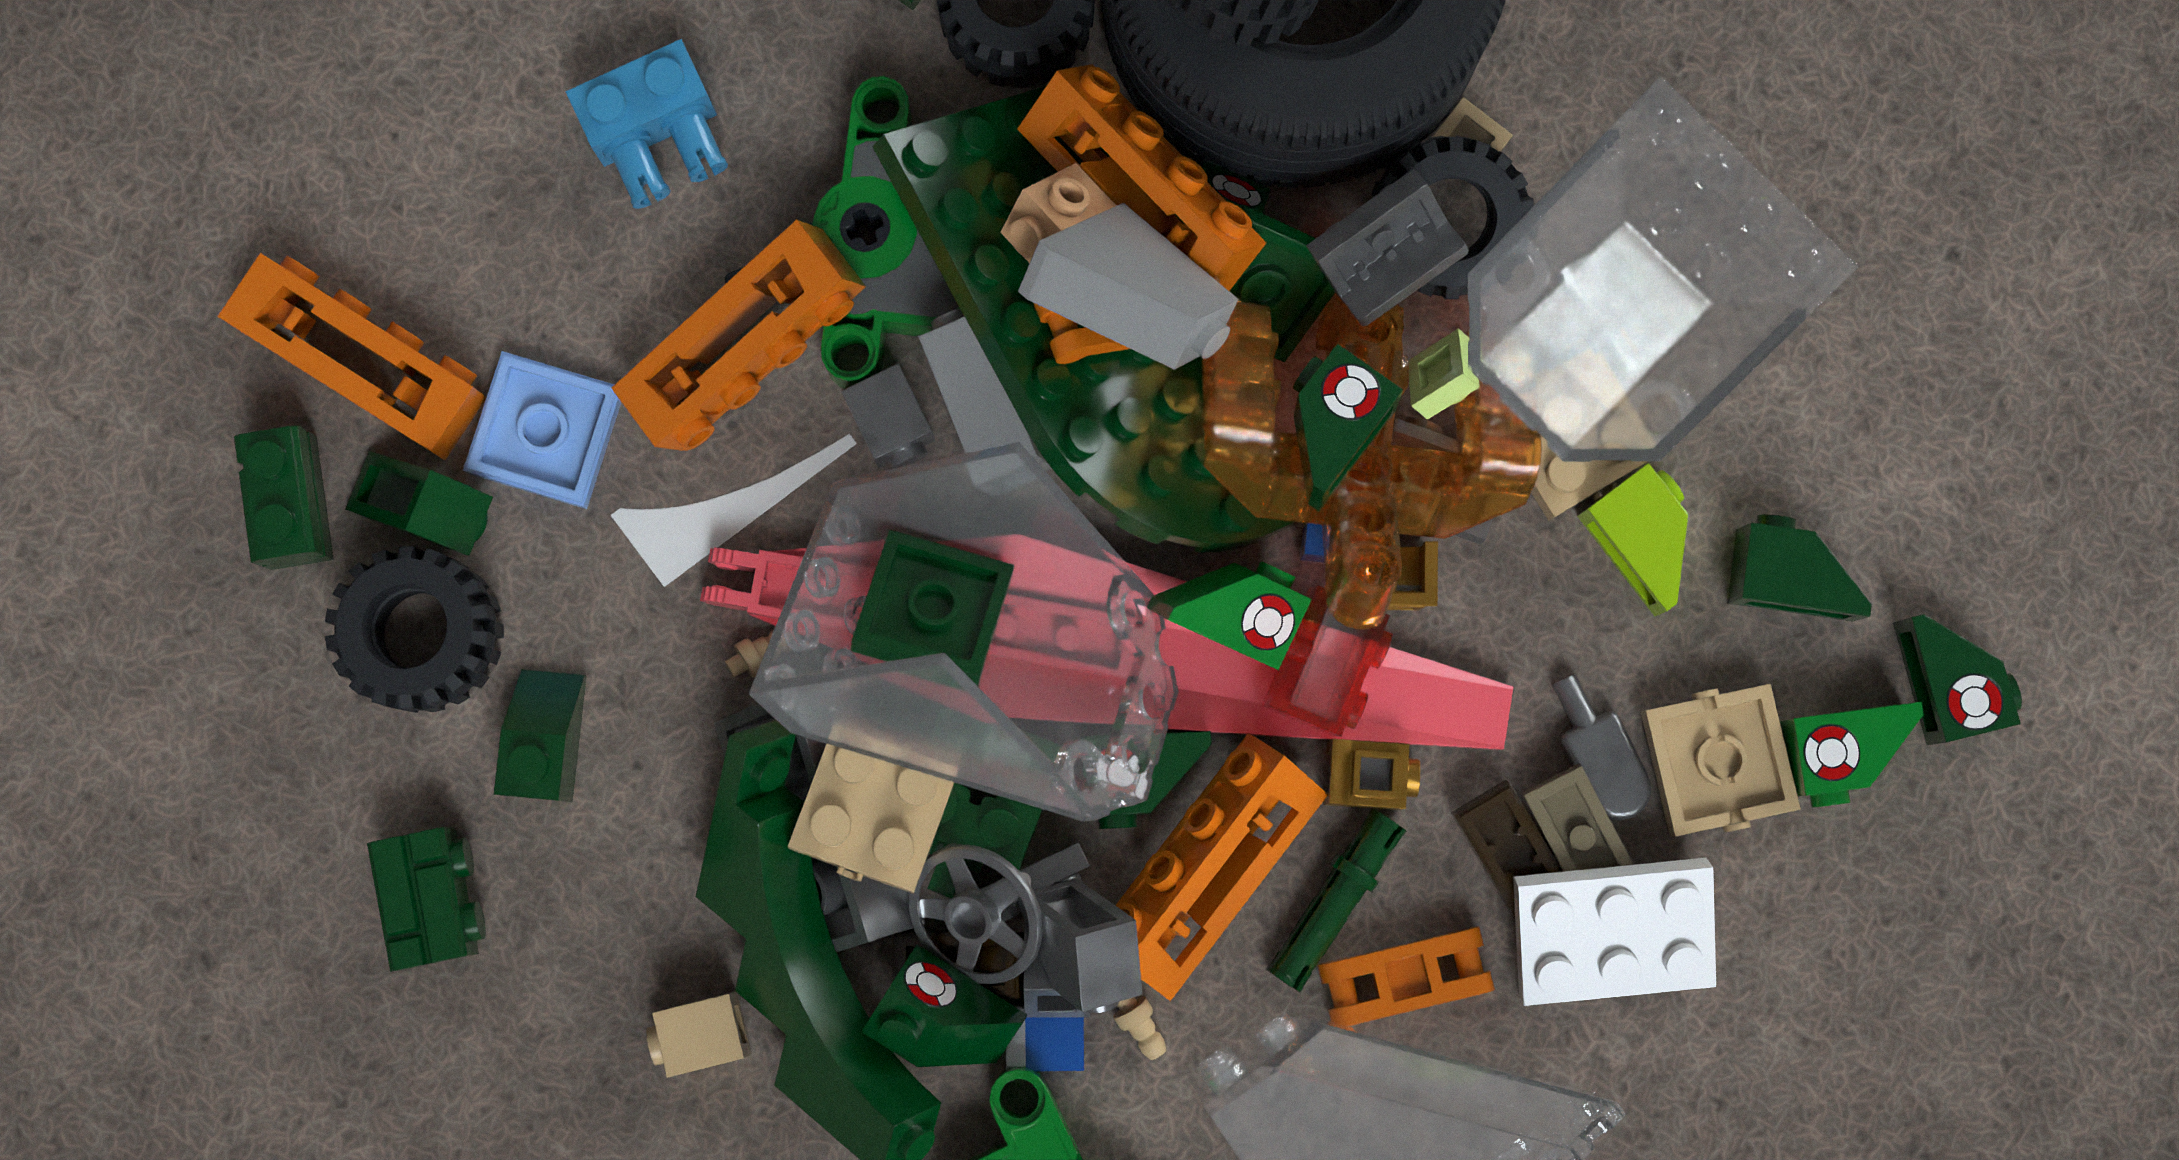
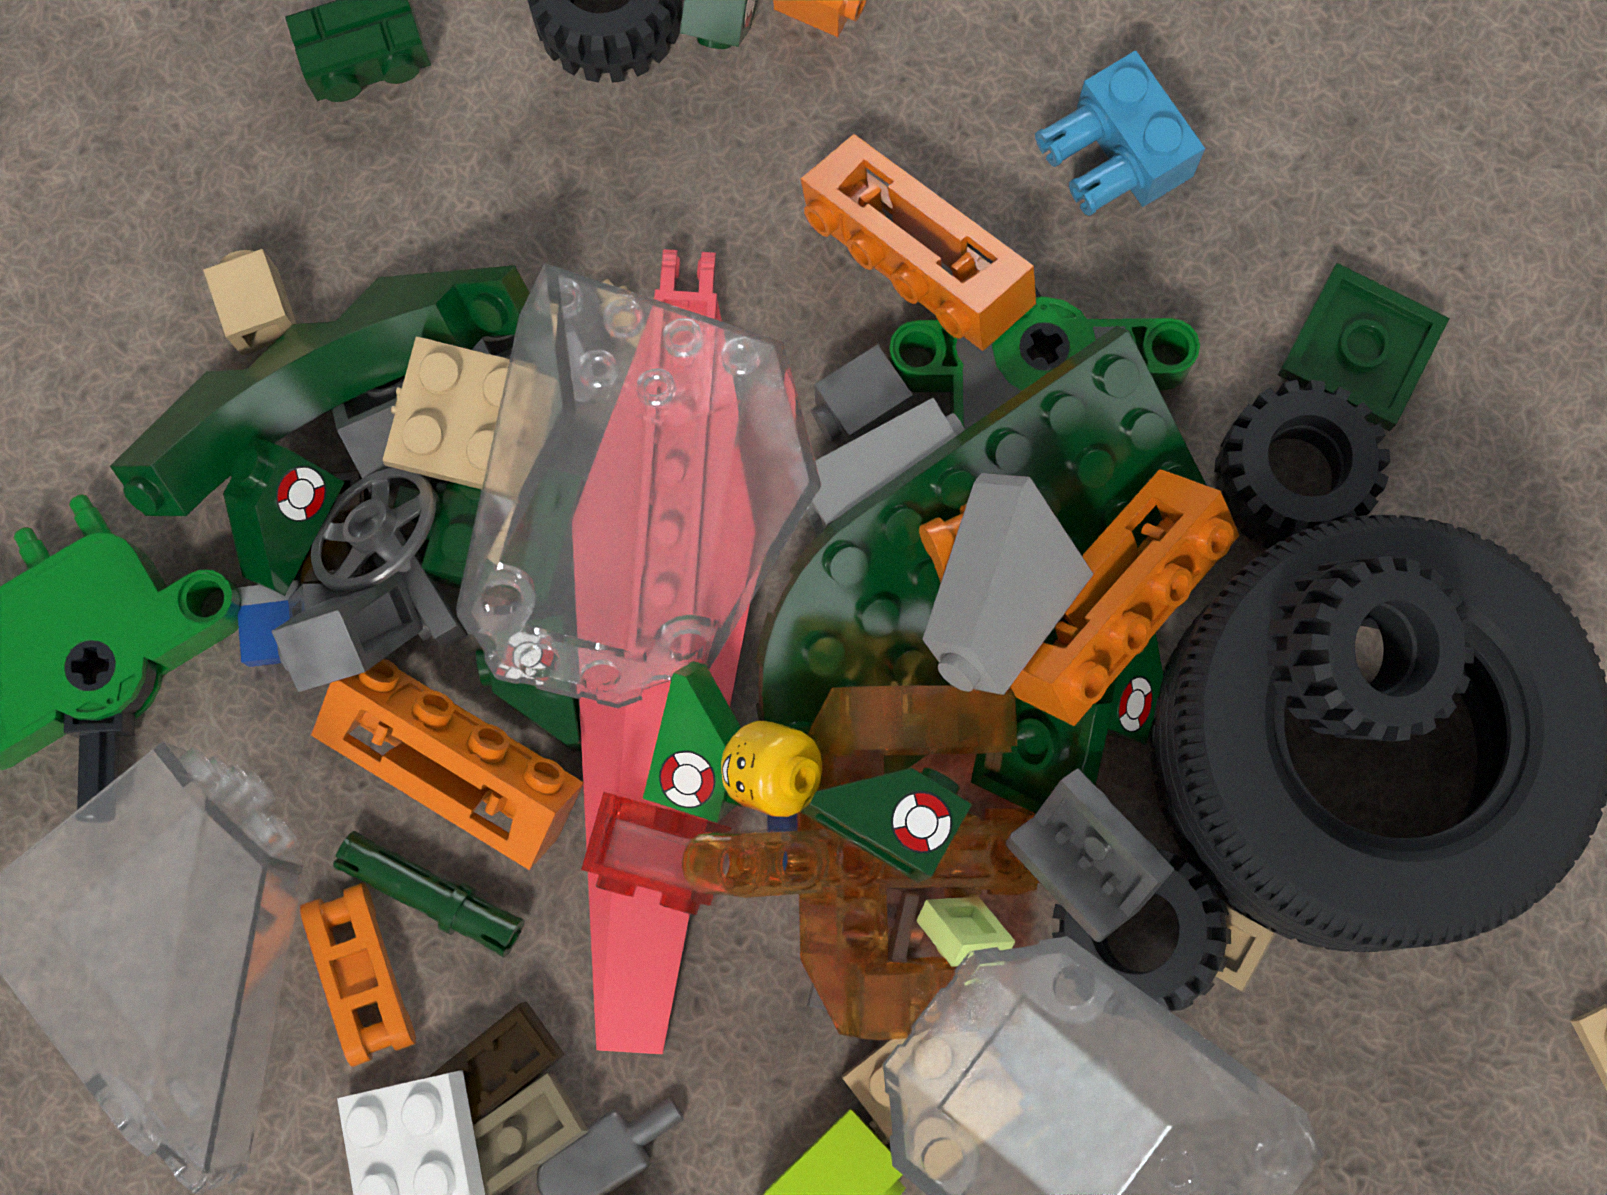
camera: 90 degrees right, 5 degrees down
(541, 737) = (515, 122): dark green slope -> none
(543, 430) = (810, 88): light blue tile -> none
(683, 535) = (727, 226): white sticker -> none
(932, 603) = (666, 449): dark green plate -> none
(1052, 207) = (1080, 506): light nougat brick -> none
(1135, 1017) = (298, 709): tan piece -> none
(1274, 534) = (771, 768): none -> yellow head
(1371, 774) = (554, 913): pearl gold window -> none
(1418, 578) = (758, 925): pearl gold window -> none

